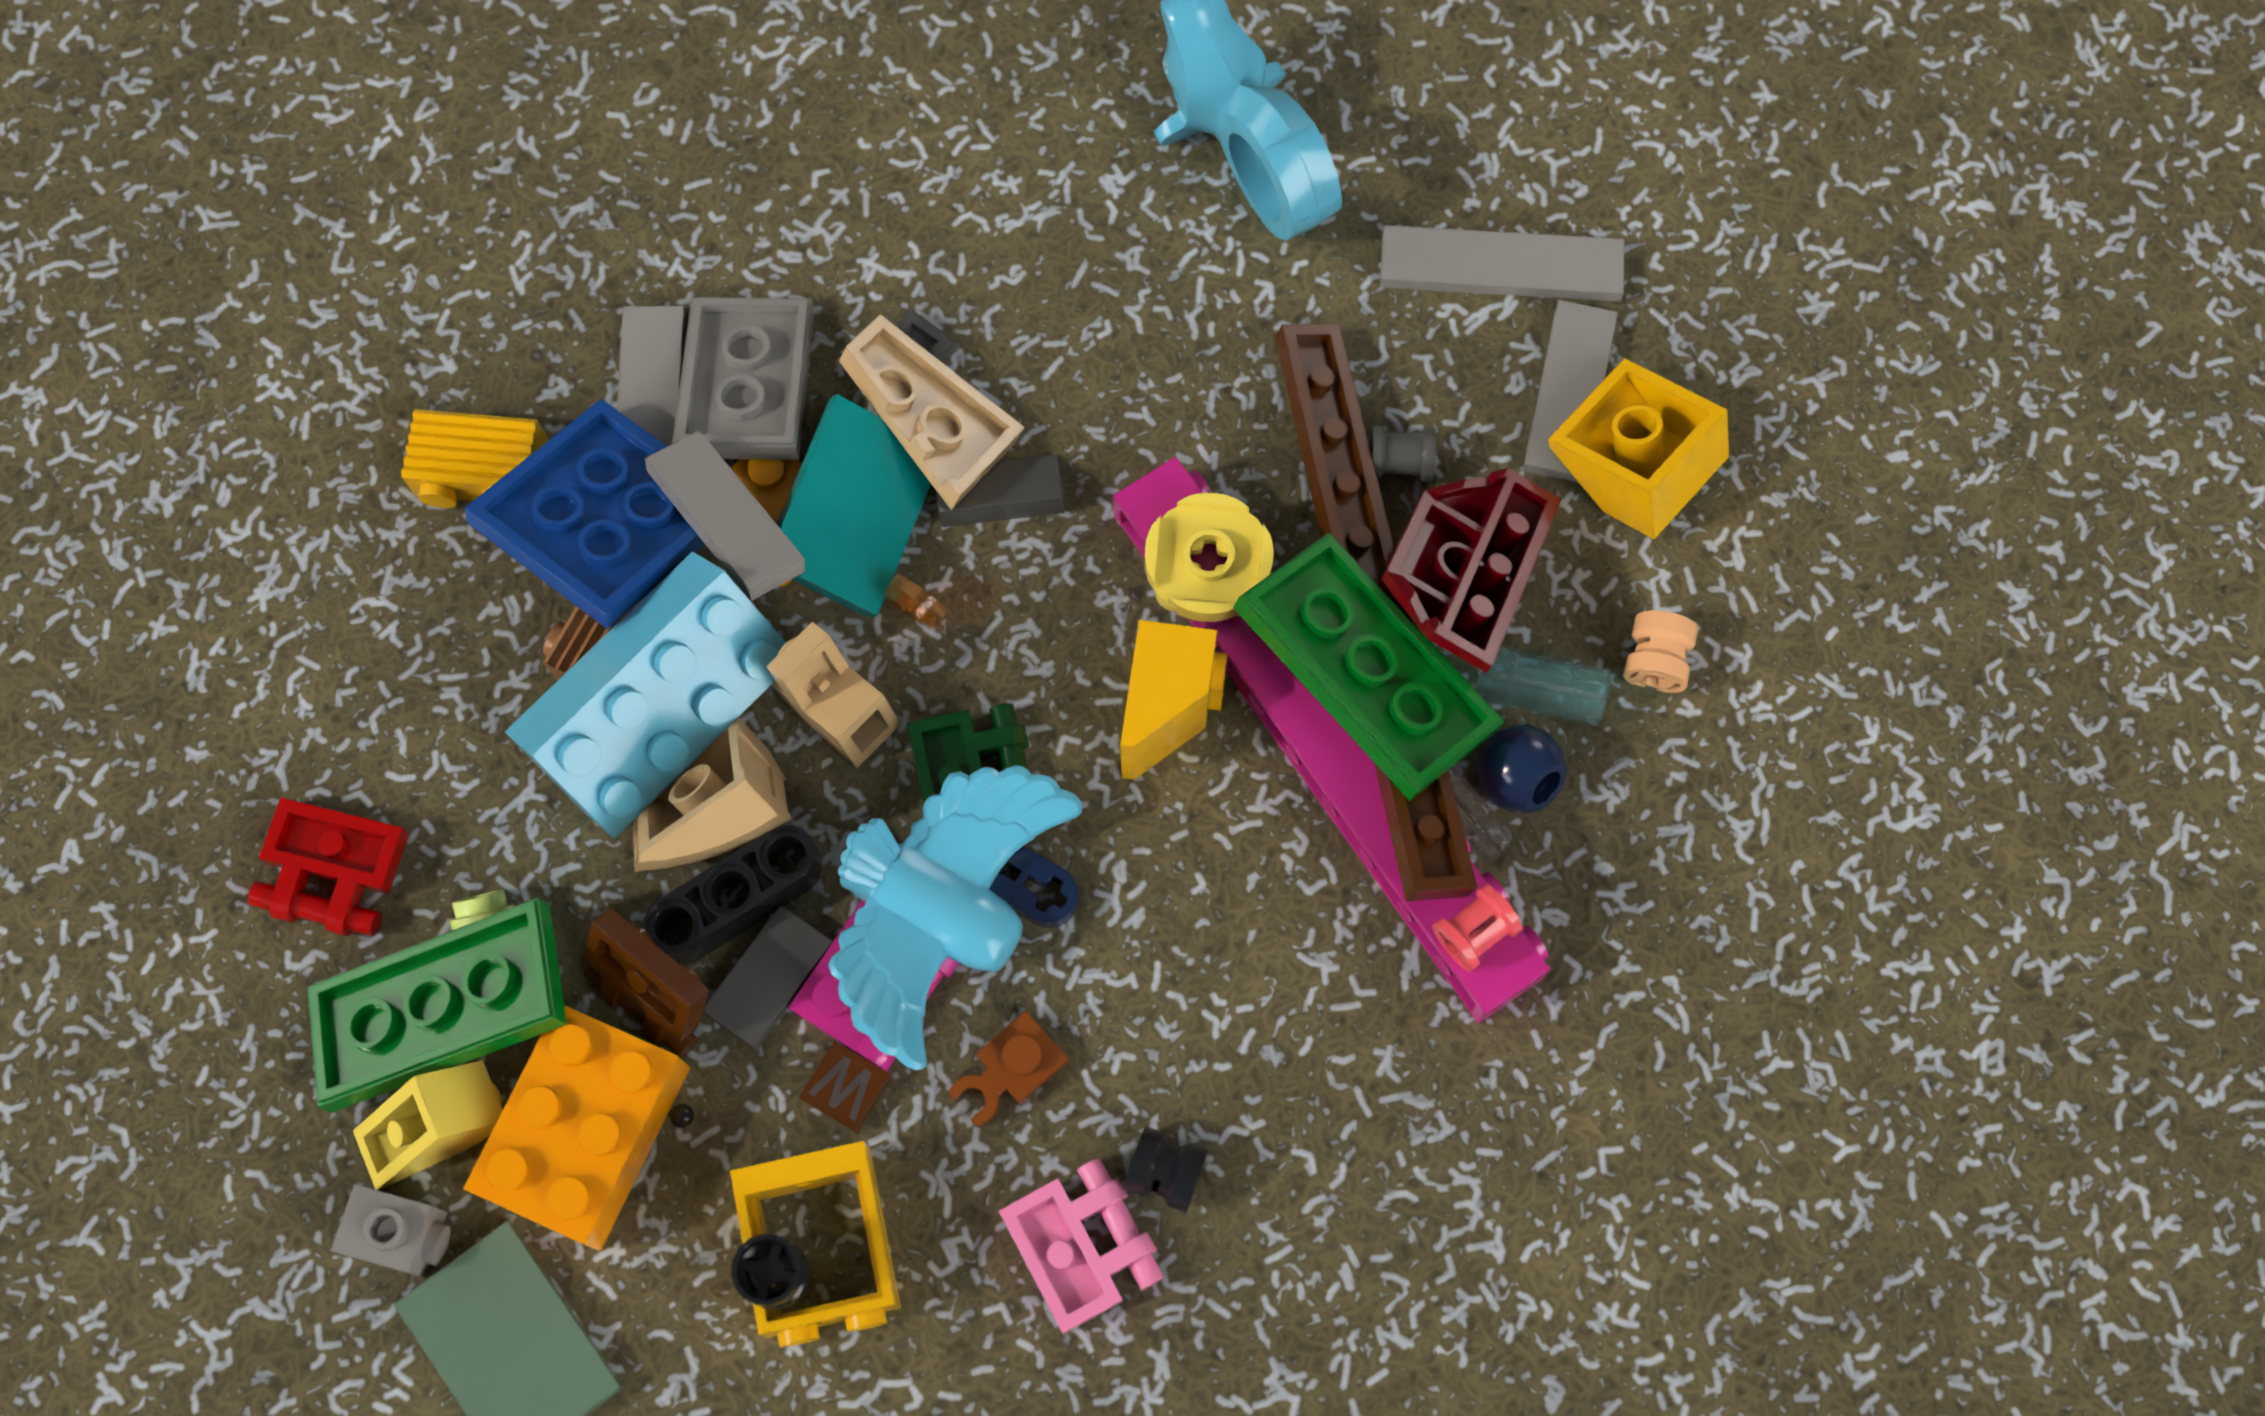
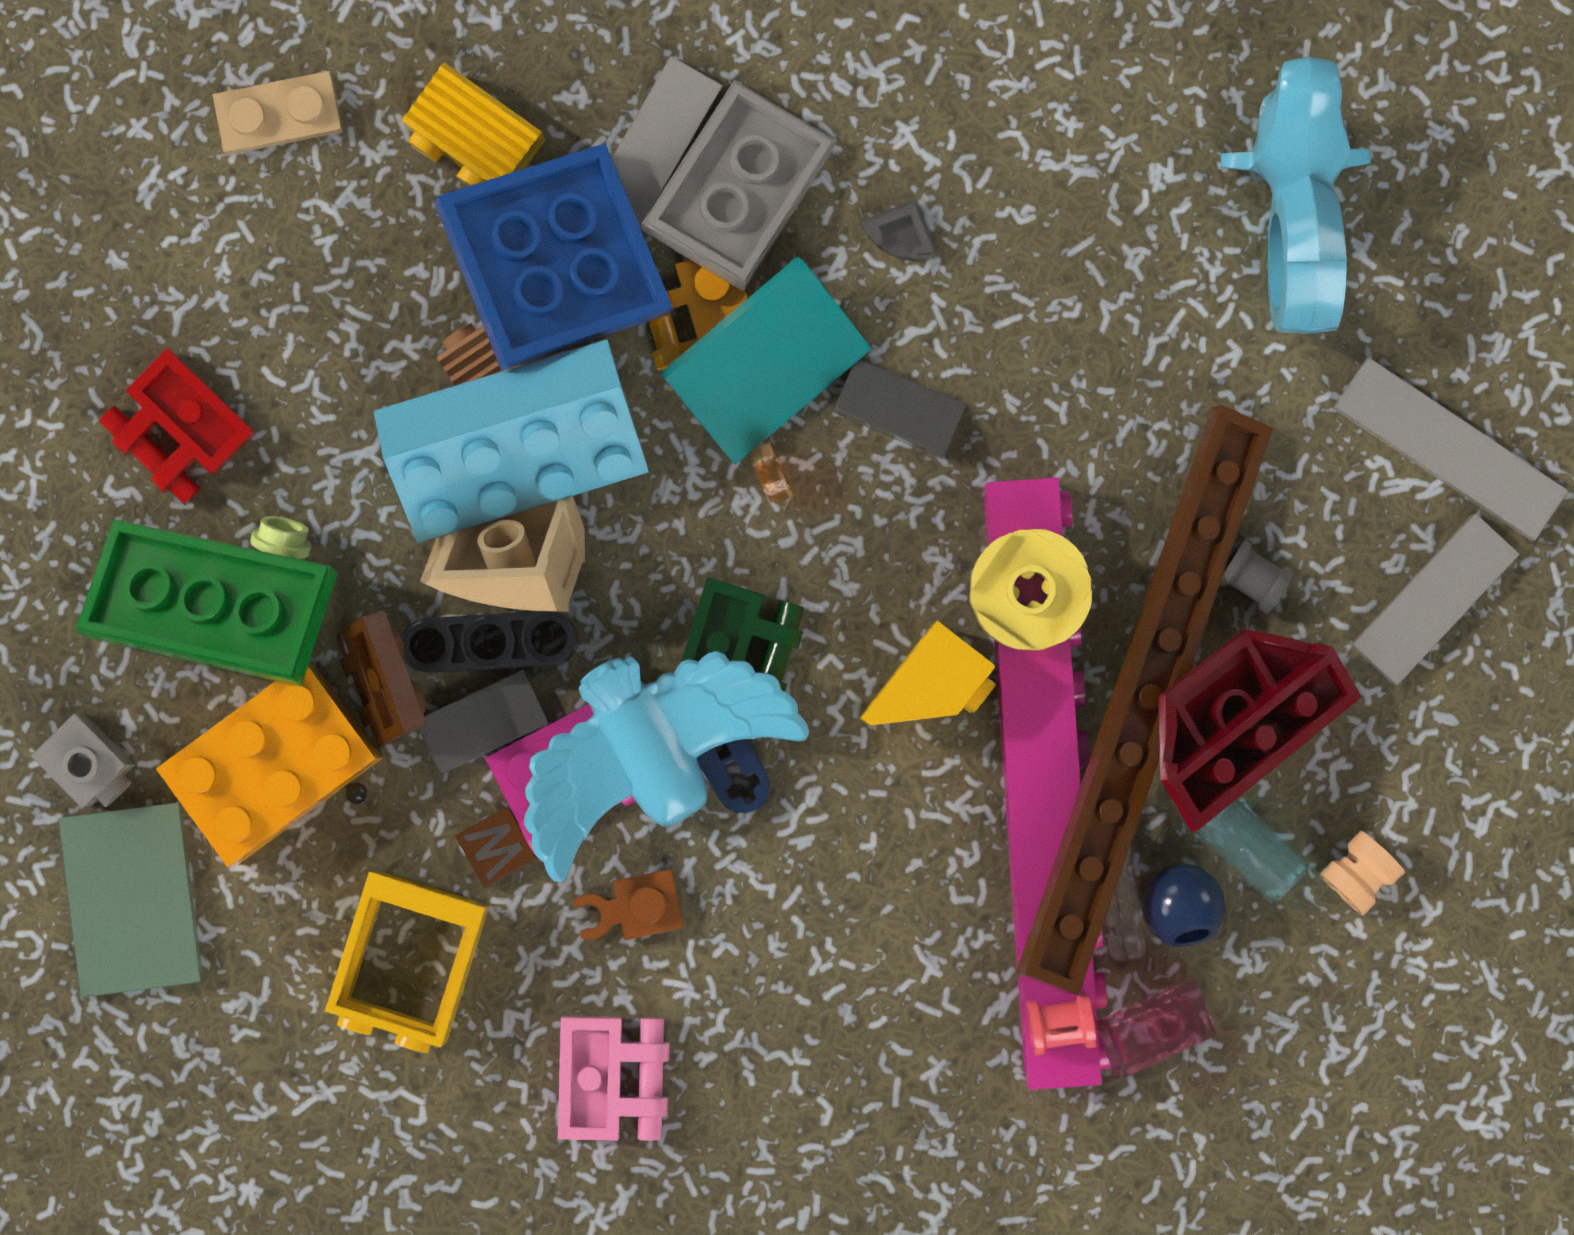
camera: 30 degrees right, 15 degrees up
(285, 543) = (277, 113): none -> tan plate
(428, 1122) = (155, 691): light yellow slope -> none
(725, 515) = (651, 322): light grey tile -> none
(759, 1267) = (349, 982): black wheel -> none
(832, 695) = (658, 523): tan brick -> none
(930, 409) = (878, 311): tan wing -> none
(1165, 1169) = (710, 1060): black wheel -> none
(1368, 665) = (1103, 762): green tile -> none
(1566, 893) = (1155, 1028): none -> clear pink plate
(1642, 446) = (1458, 689): yellow slope -> none

